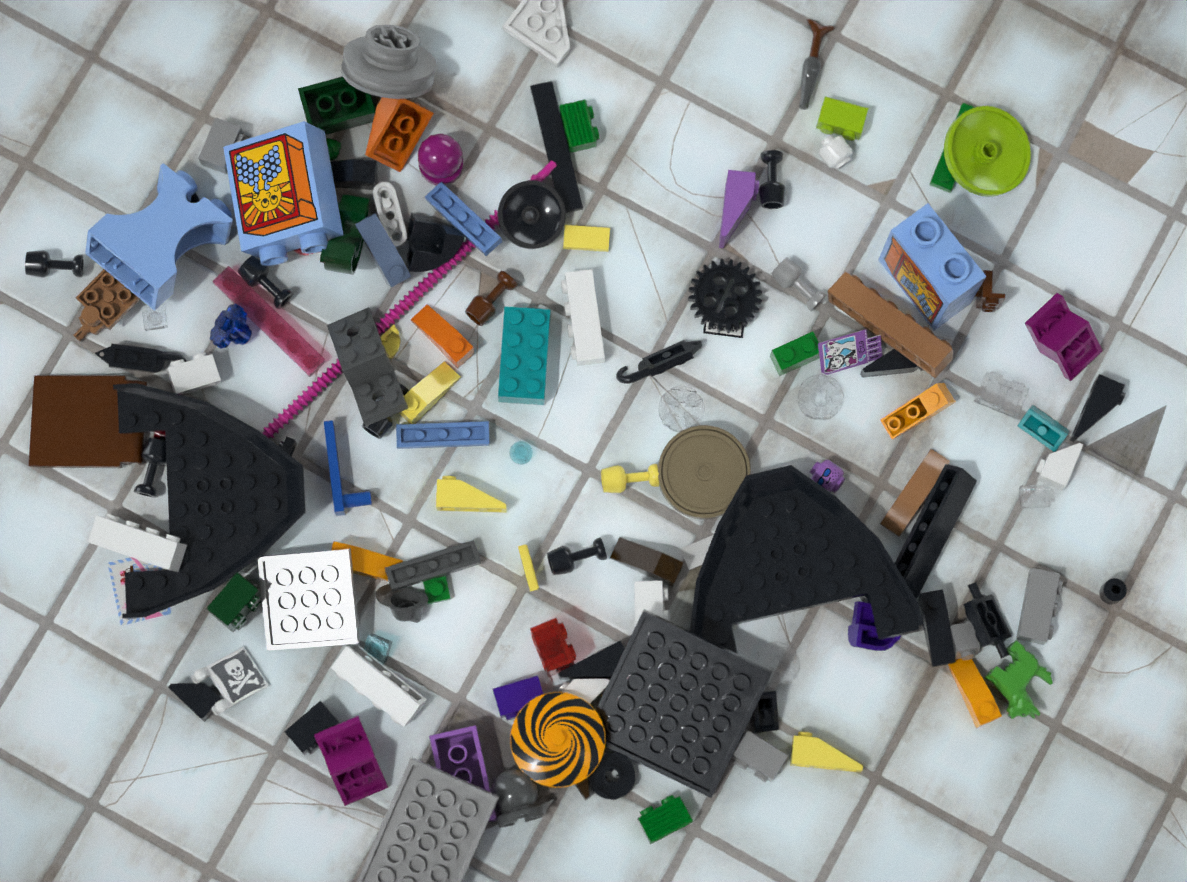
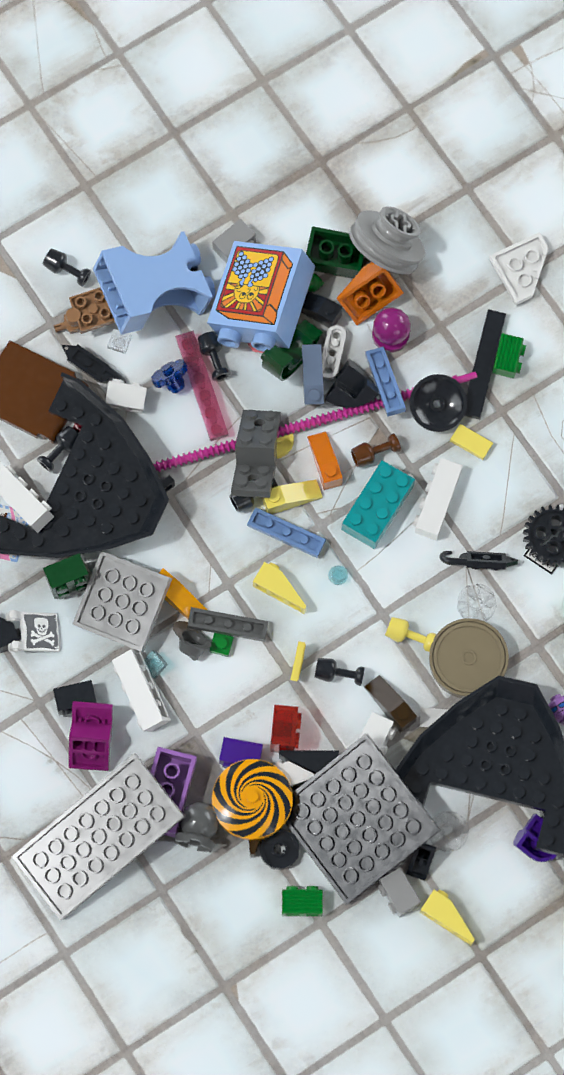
camera: 30 degrees right, 5 degrees down
(339, 500) = (184, 541): blue piece -> none

